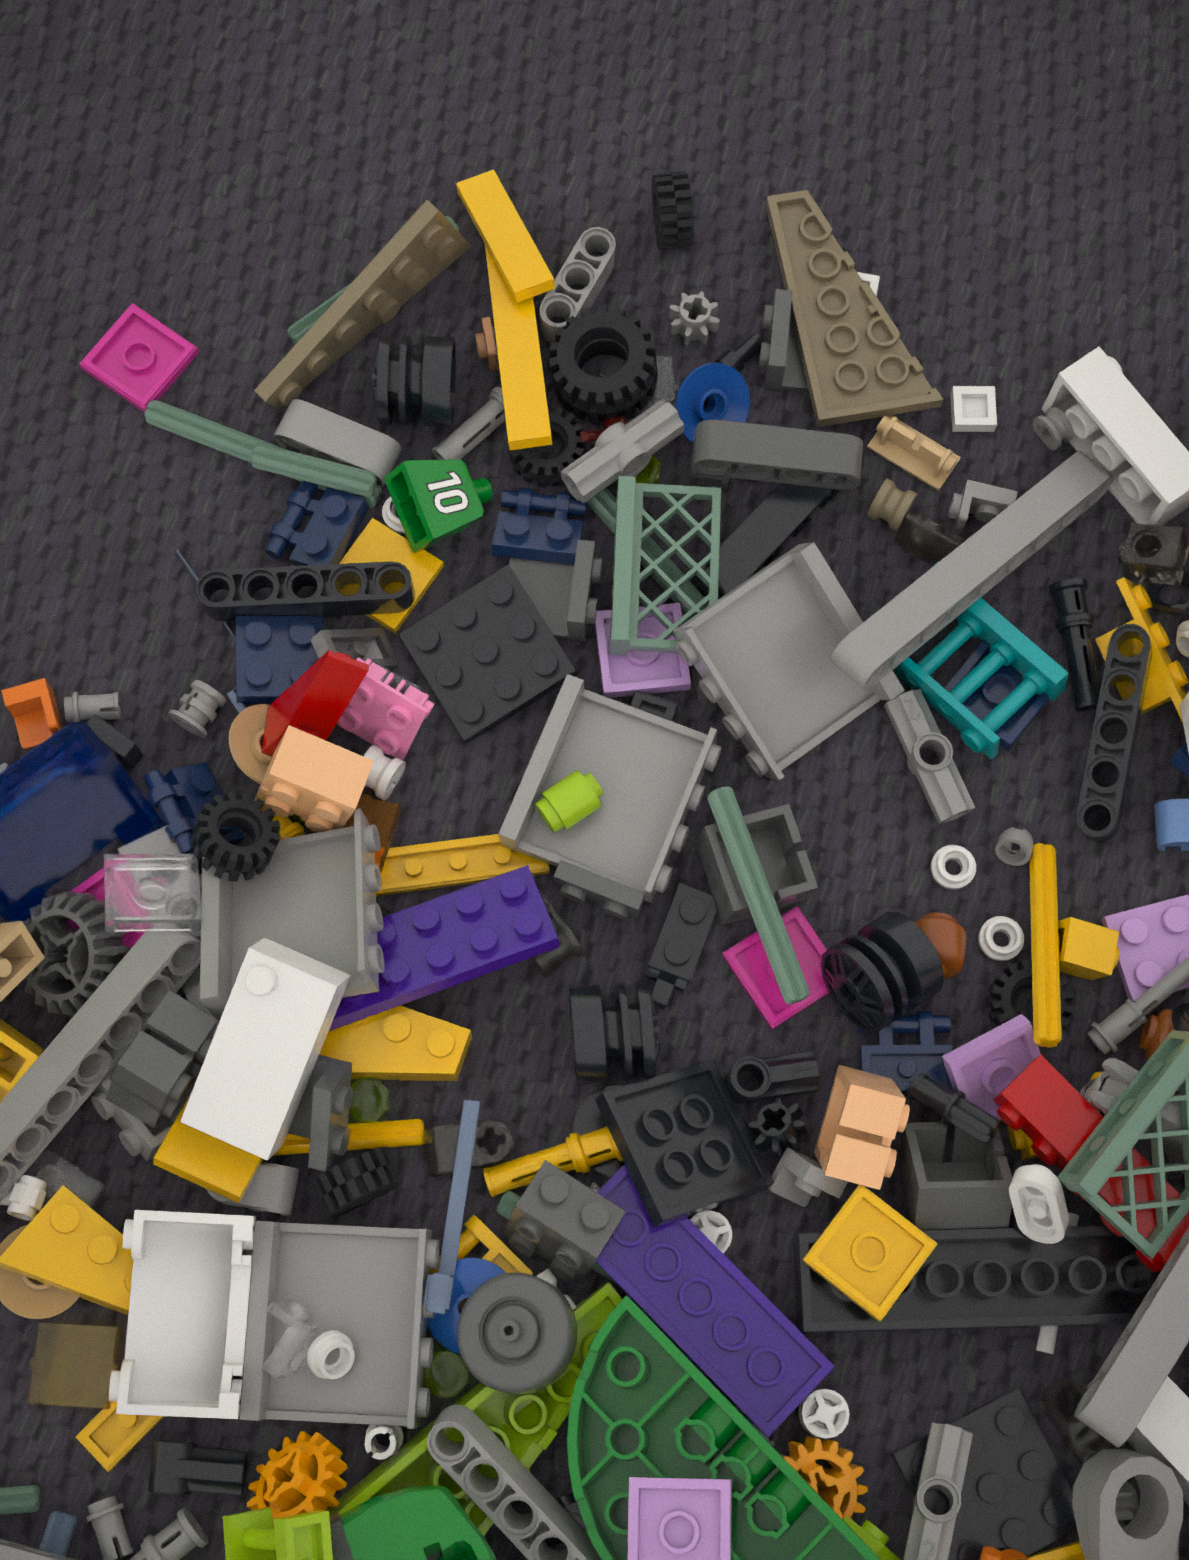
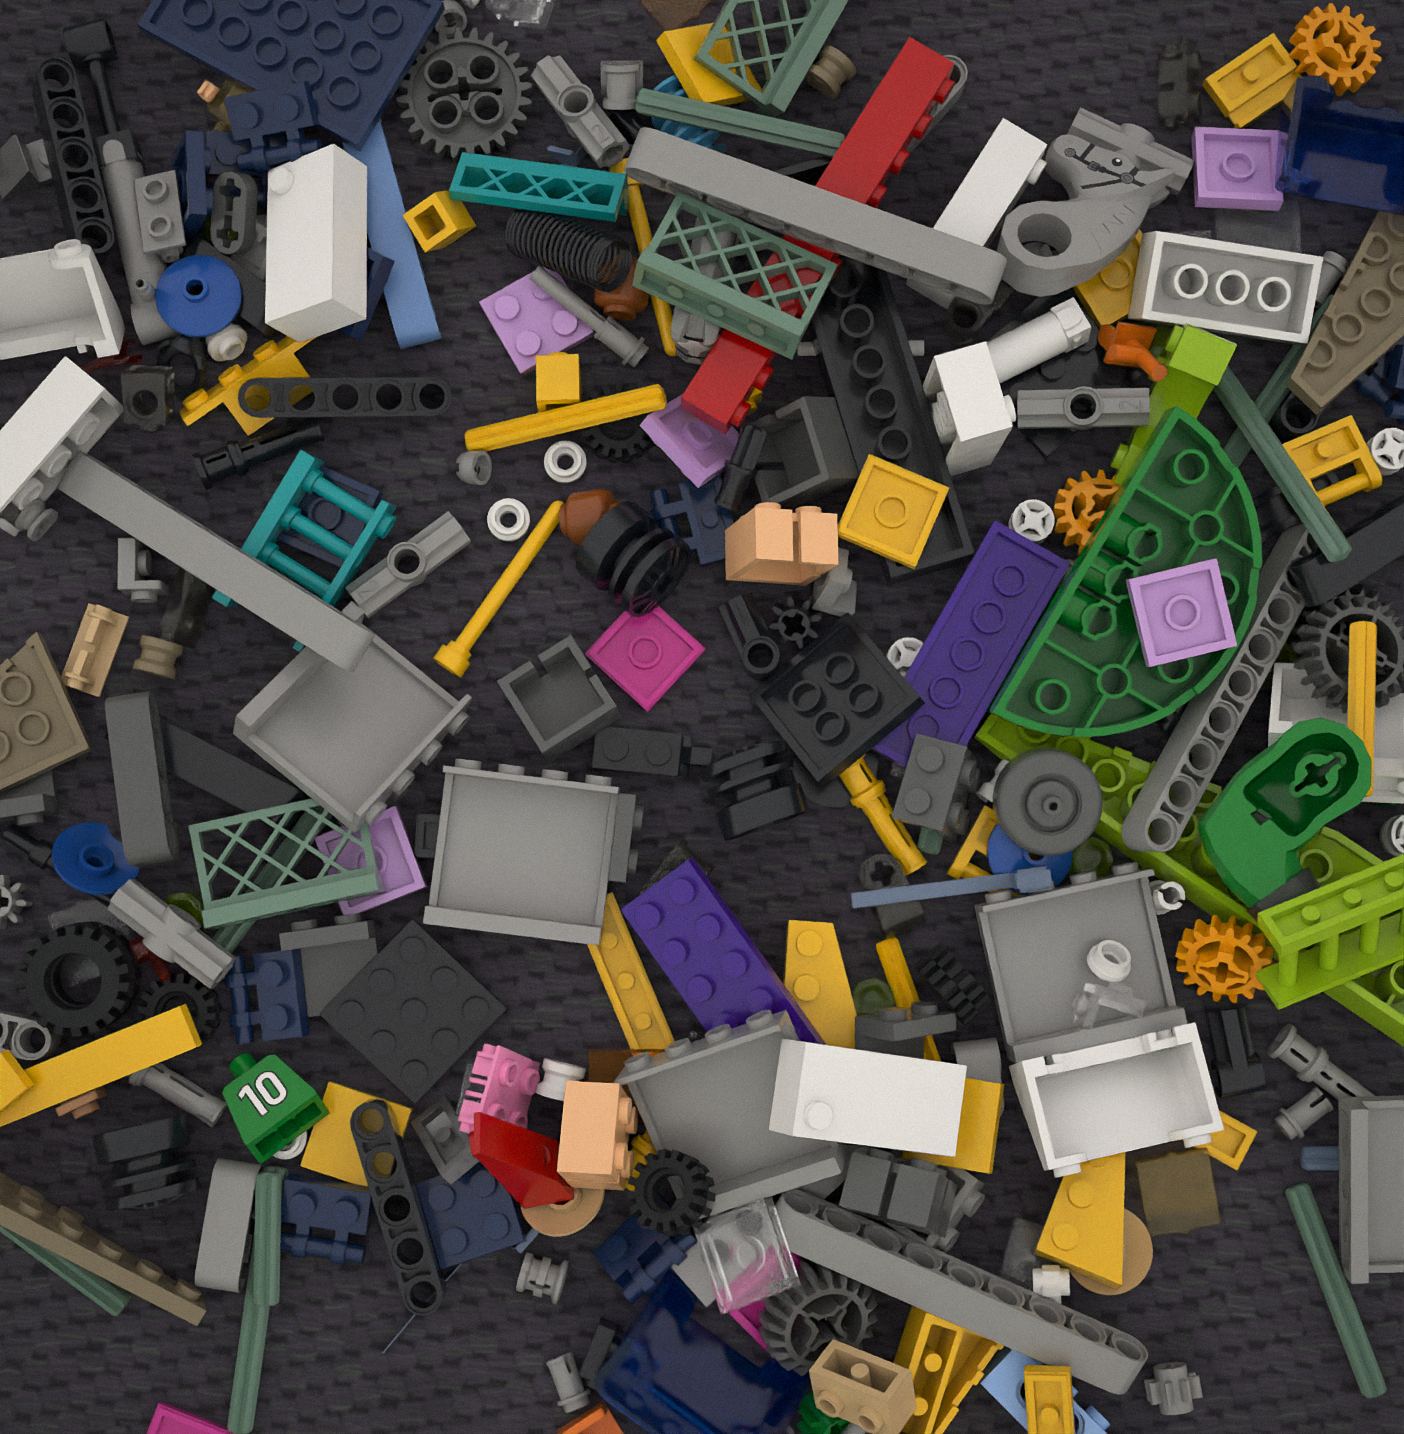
camera: 100 degrees left, 10 degrees up
(569, 801) = (546, 887): lime brick -> none
(758, 895) = (595, 687): sand green axle -> none
(826, 780) = (456, 654): none -> yellow piece
(962, 1357) = (968, 407): none -> white brick
(973, 409) = (33, 601): white plate -> none
(1021, 1461) = (1039, 340): none -> white piece
(1039, 1204) = (813, 372): white plate -> none

